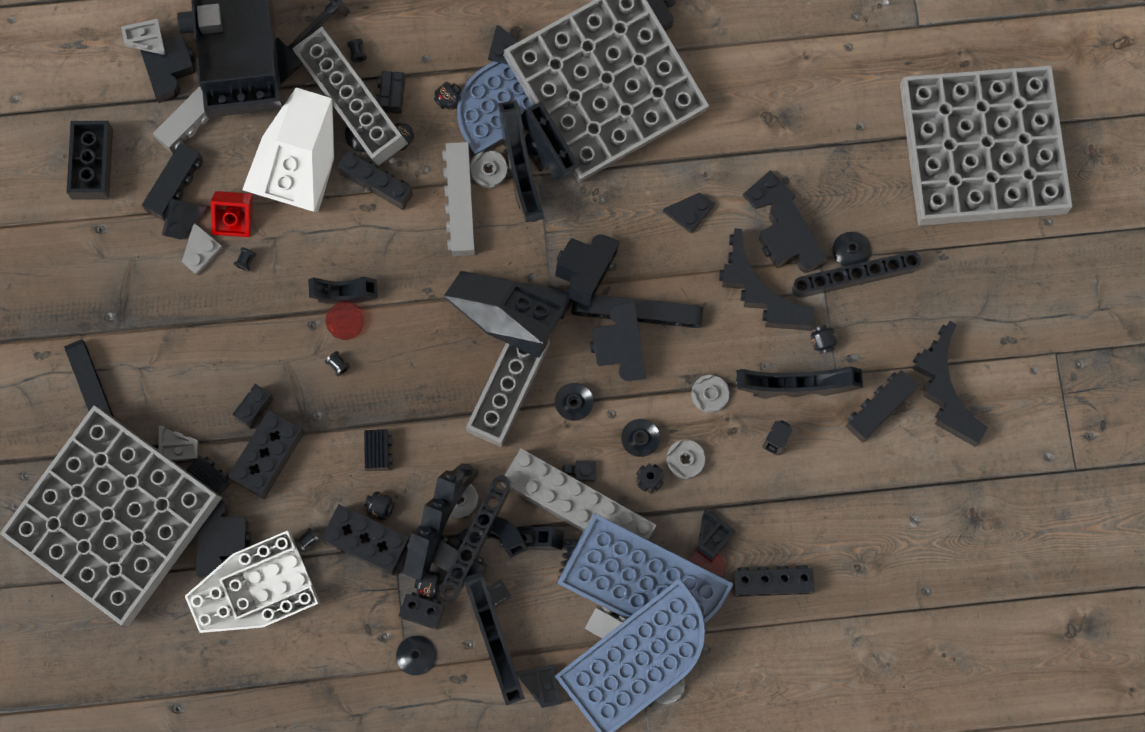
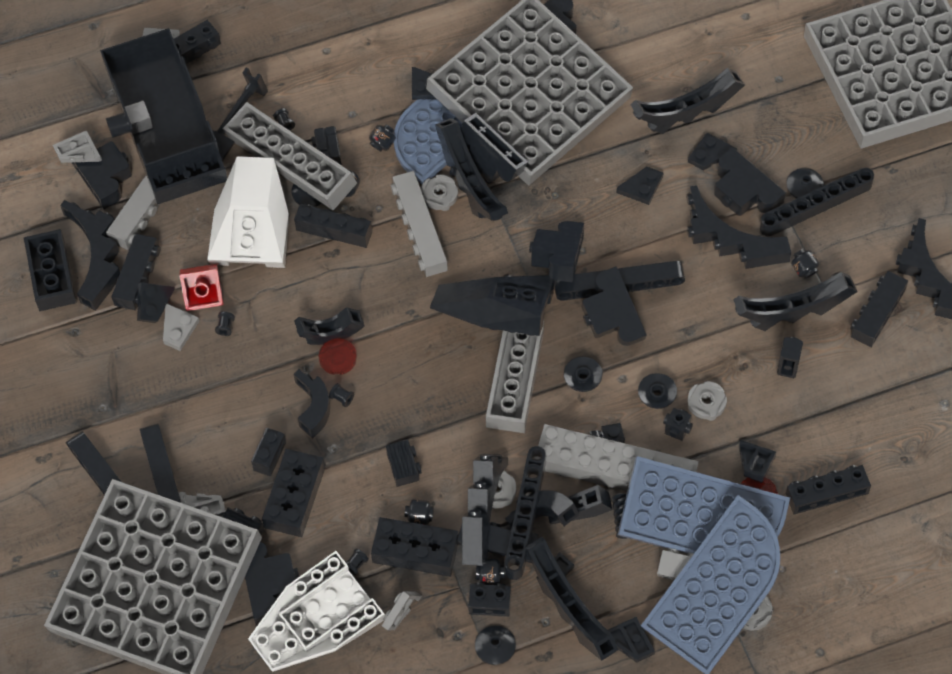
camera: 10 degrees left, 15 degrees down
(140, 174) = (102, 271): none -> black arch
(148, 396) = (159, 462): none -> black beam
(312, 374) = (317, 414): none -> black arch
(337, 597) = (400, 609): none -> light grey wing
(710, 393) = (712, 338): light grey tile -> none
(756, 139) = (685, 108): none -> black arch

